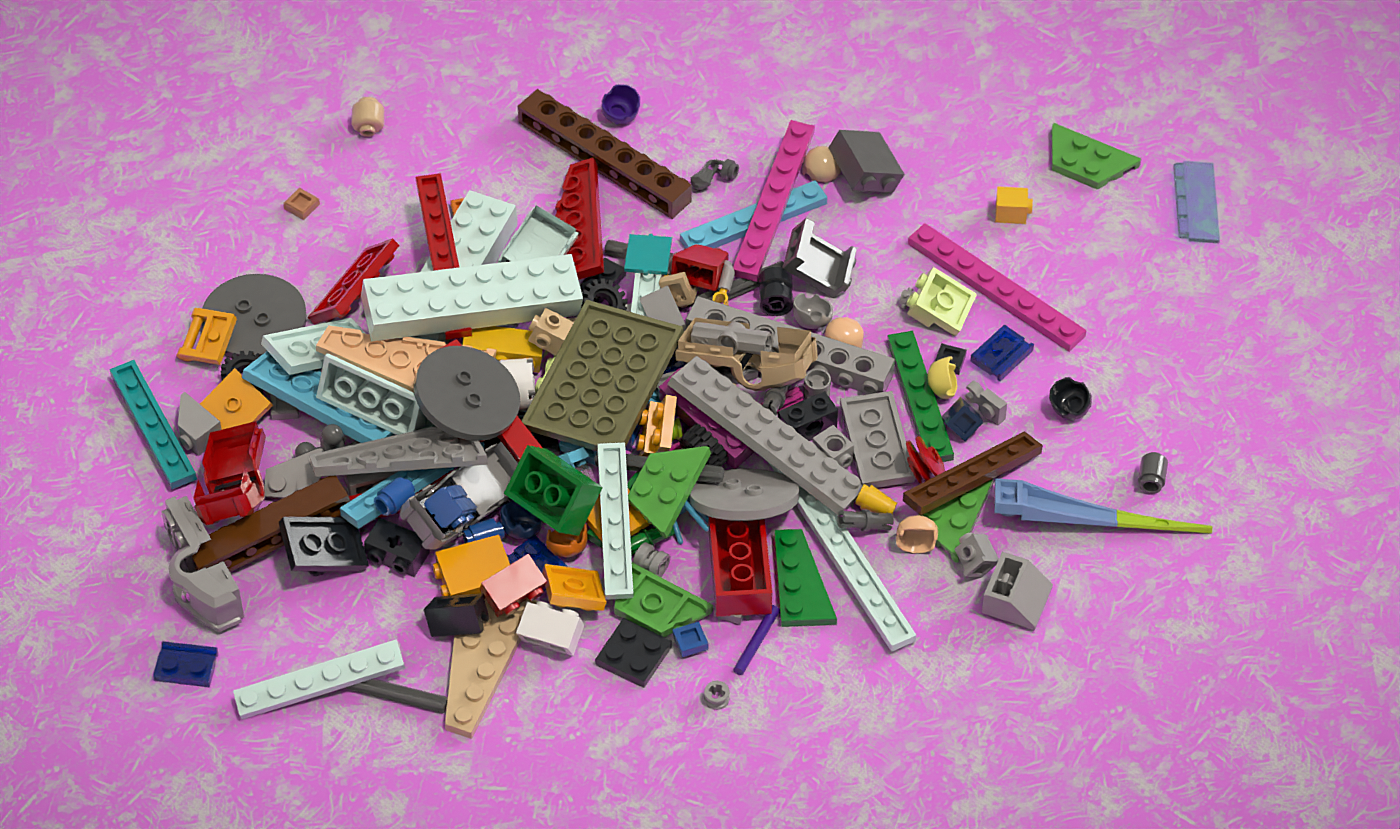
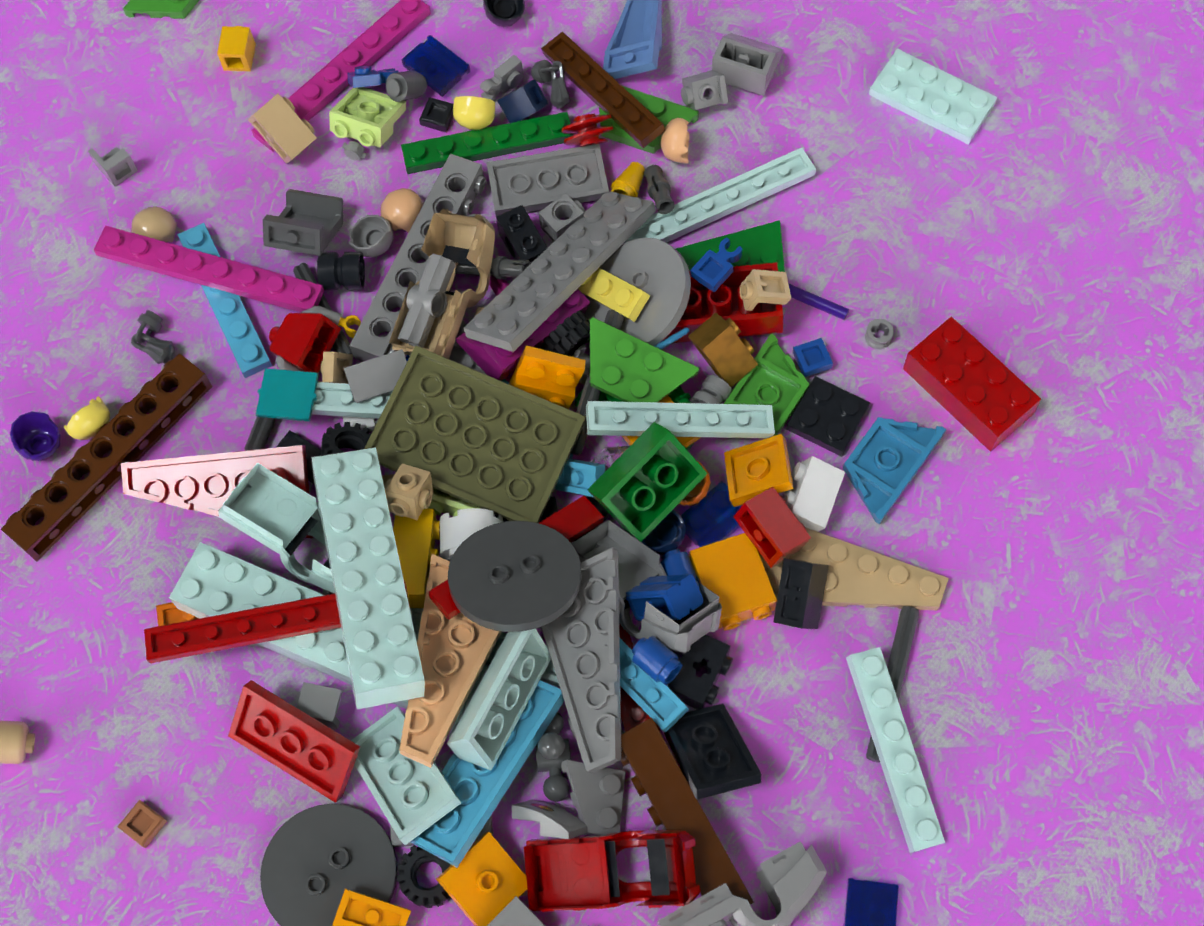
camera: 85 degrees left, 15 degrees up
(278, 444) = (553, 820): none -> light grey slope
(584, 693) = (888, 462): none -> dark azure wing
(633, 135) = (88, 420): none -> light yellow hair
(659, 758) = (971, 383): none -> red brick
(687, 557) = (723, 349): none -> pearl gold brick
(738, 575) = (764, 287): none -> tan bracket
(742, 474) = (615, 294): none -> light yellow plate
(764, 540) = (716, 268): none -> blue plate
(866, 161) = (164, 176): dark grey brick -> none
(889, 130) = (114, 165): none -> light grey panel
(918, 238) = (283, 127): none -> tan brick
(972, 326) = (405, 85): none -> dark grey brick
(982, 300) = (366, 77): none -> blue plate
(987, 755) = (932, 96): none -> light aqua plate
(996, 434) = (545, 72): none -> dark grey piece

